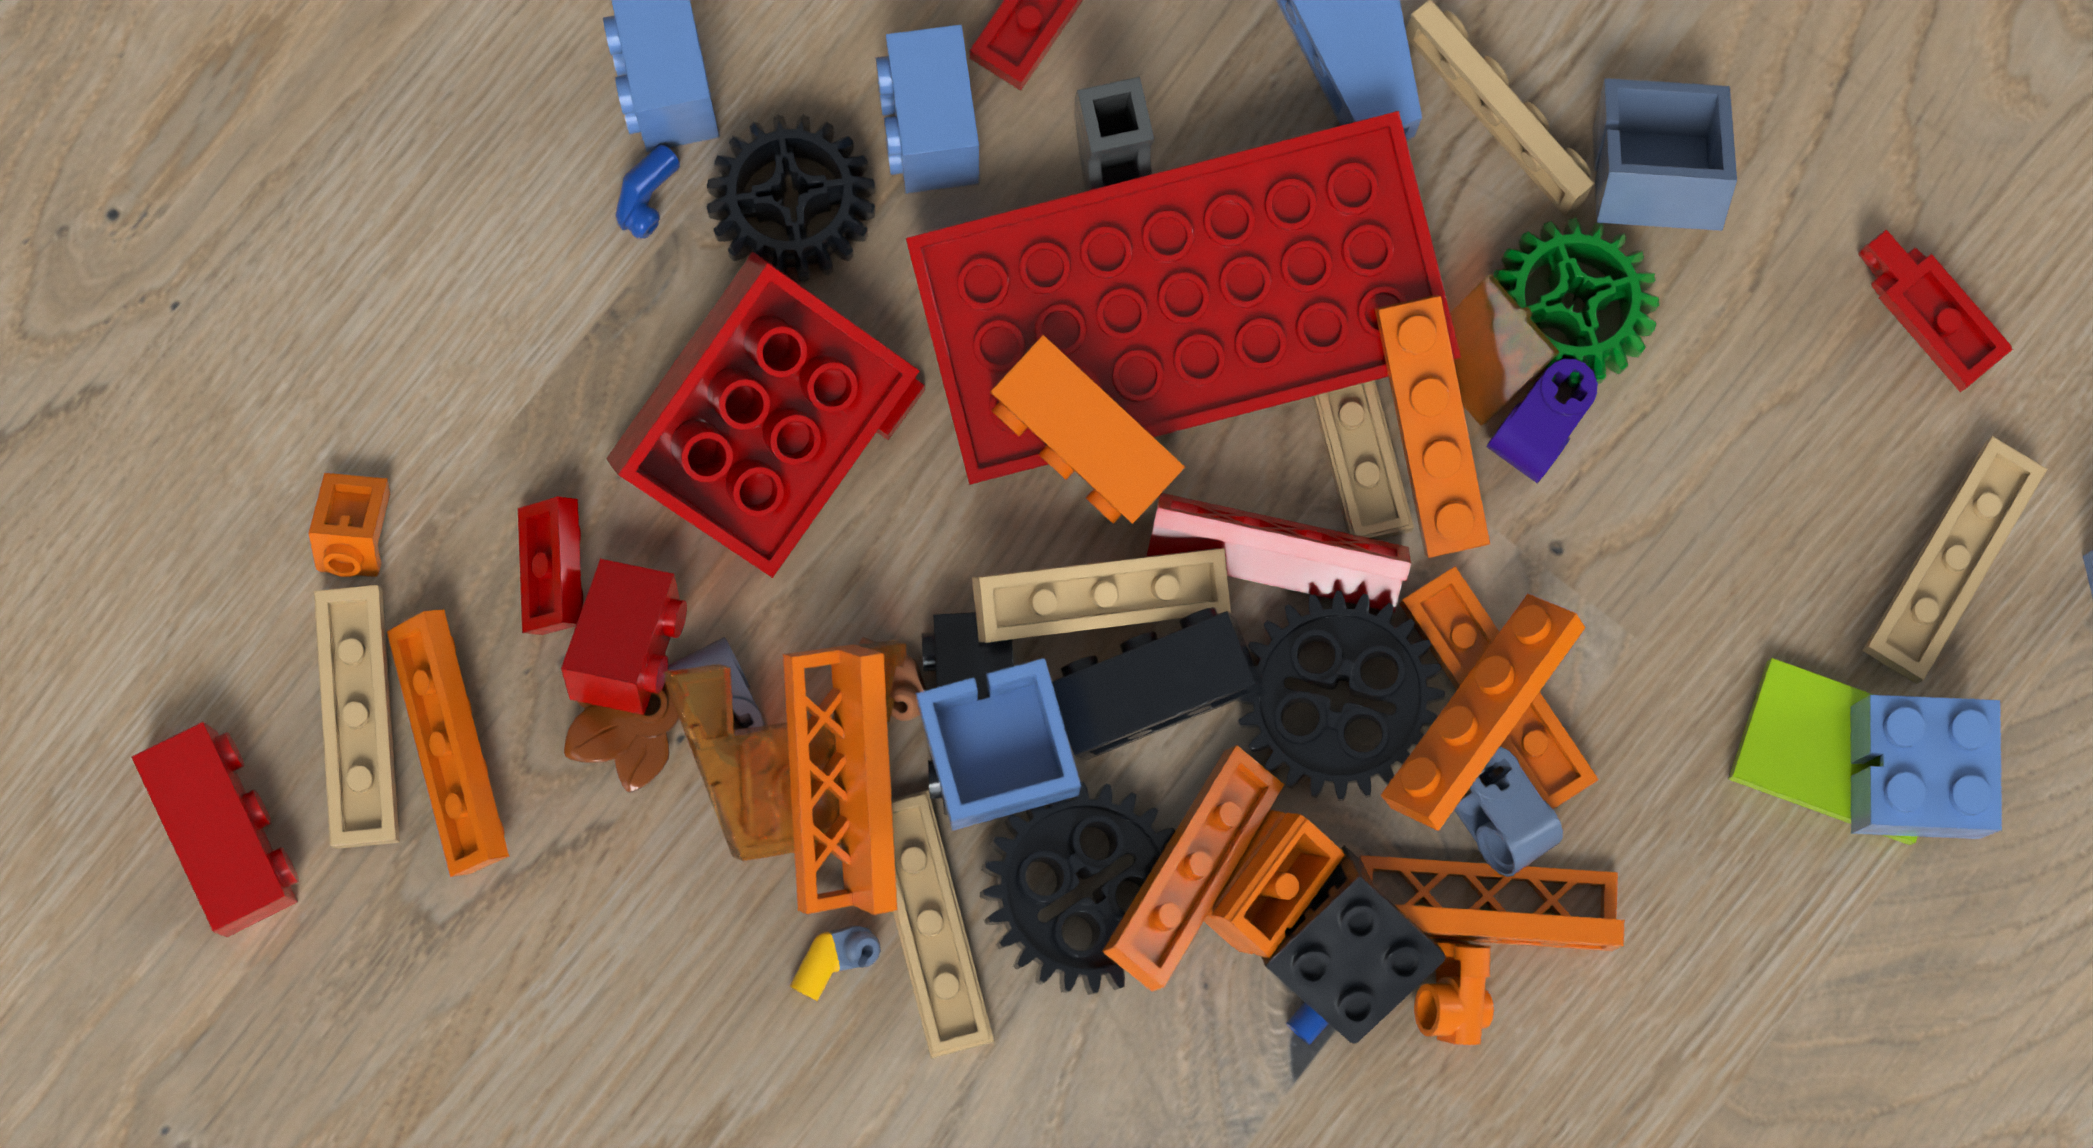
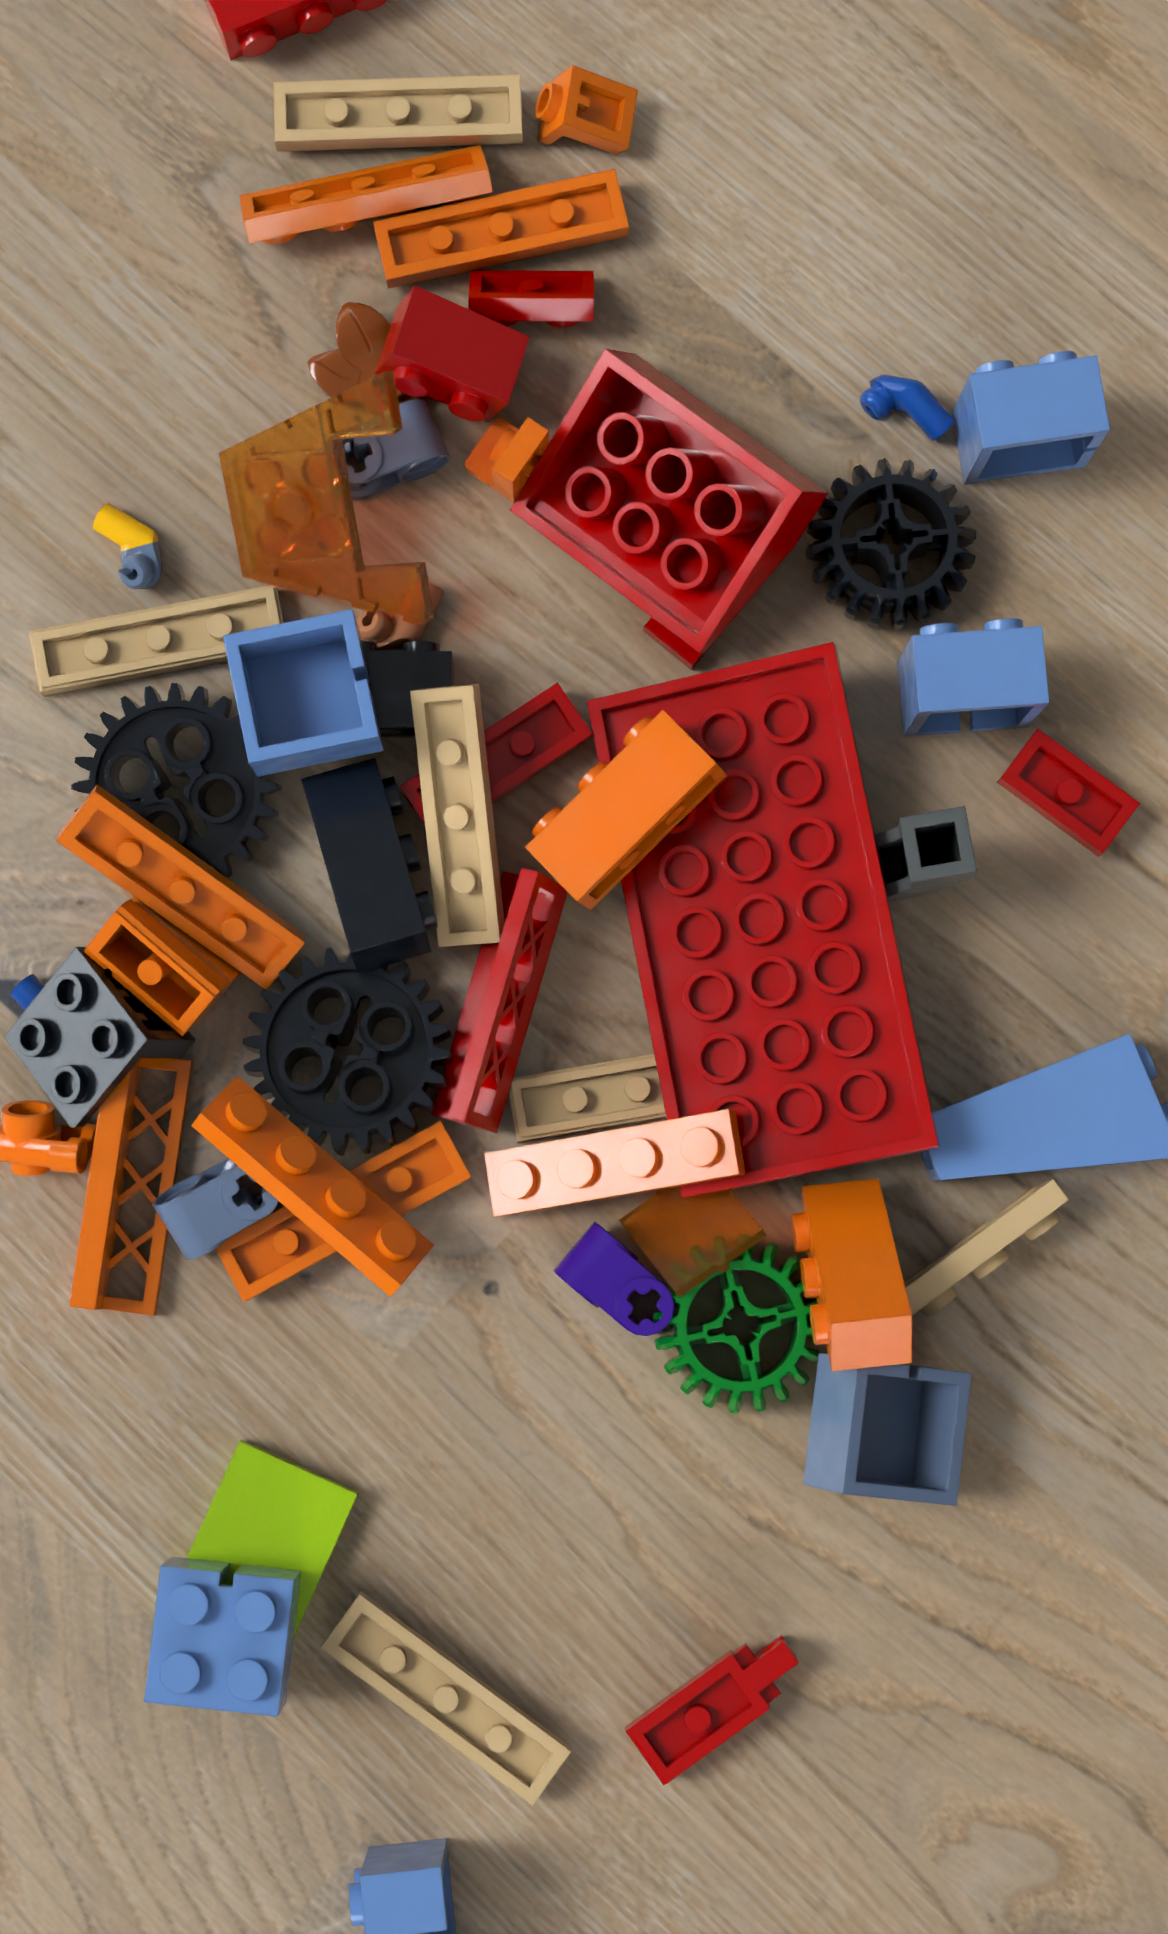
camera: 95 degrees right, 5 degrees up
(478, 603) = (501, 228): none -> orange plate
(721, 577) = (507, 455): none -> orange bracket
(862, 775) = (292, 571): orange fence -> none
(1017, 541) = (523, 744): none -> red plate
(1524, 187) = (853, 1275): none -> orange brick

